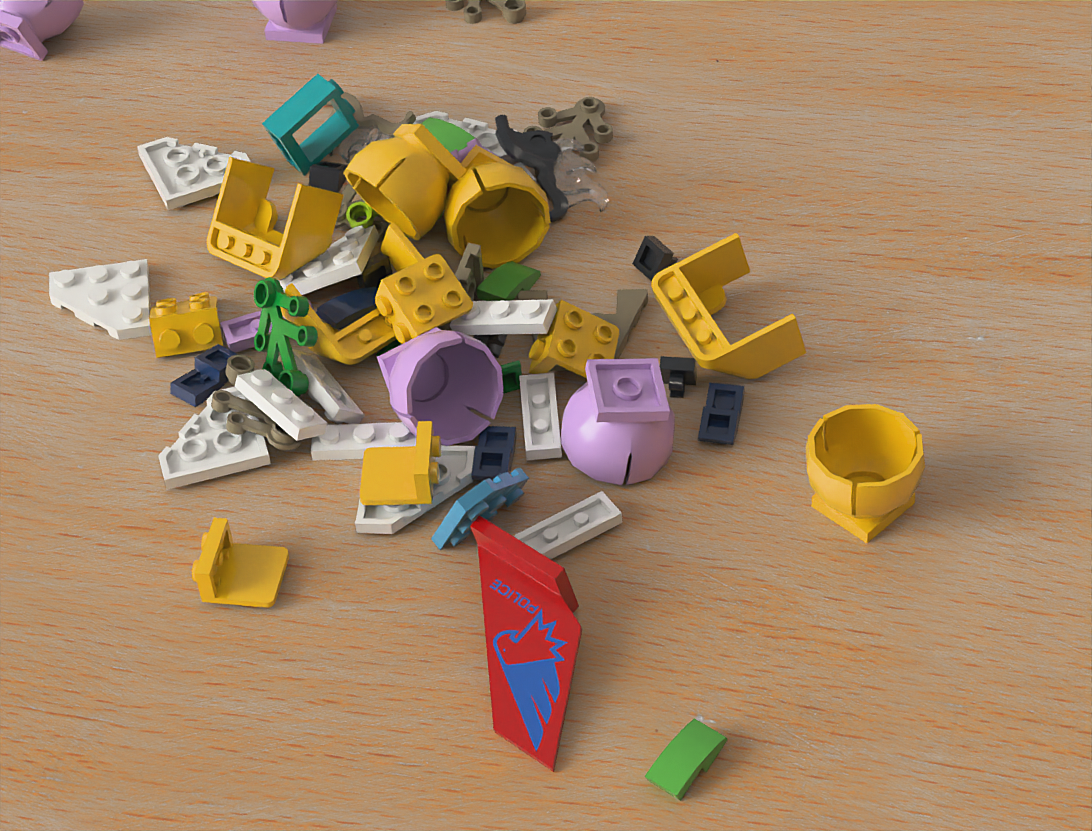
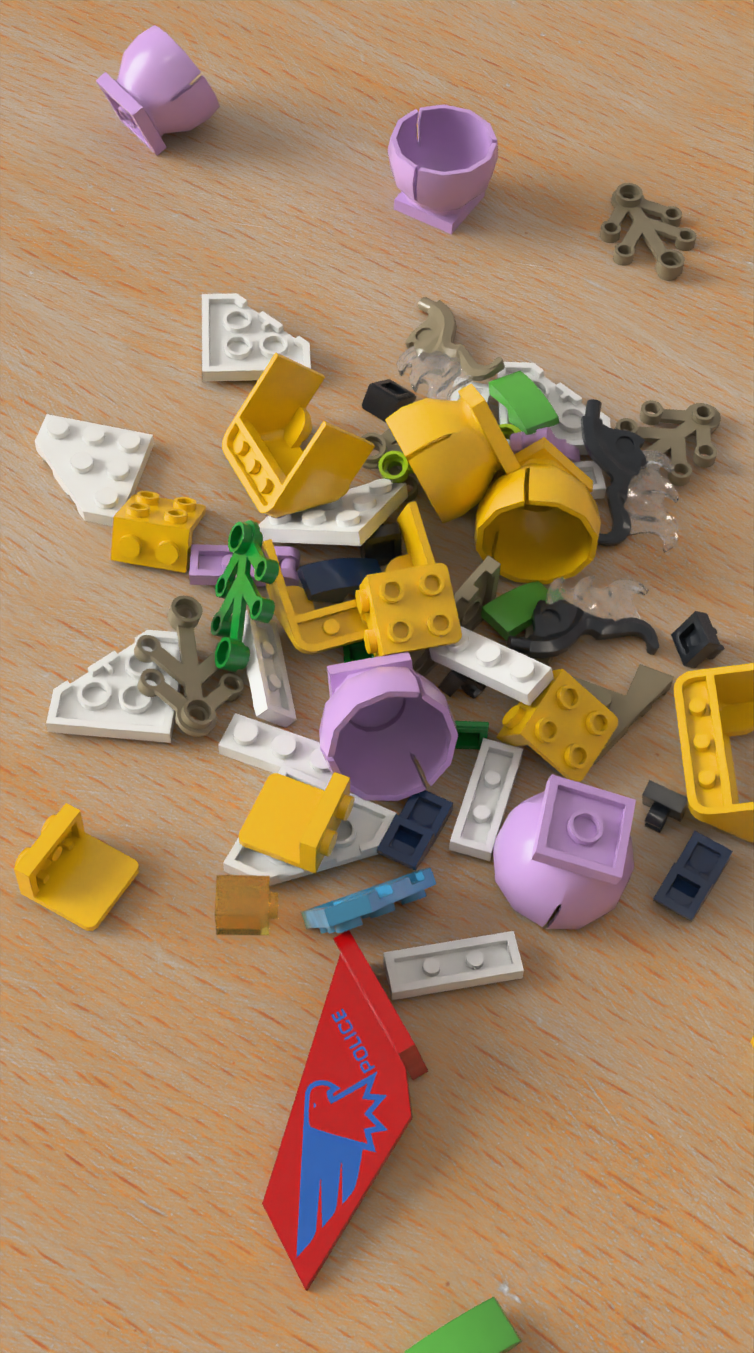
camera: 15 degrees right, 10 degrees up
(206, 378) = (149, 606): dark blue slope -> none
(281, 404) = (205, 679): white plate -> none
(299, 110) = (380, 317): teal window -> none
(385, 545) = (244, 905): none -> clear yellow brick
(545, 275) = (581, 612): none -> black piece

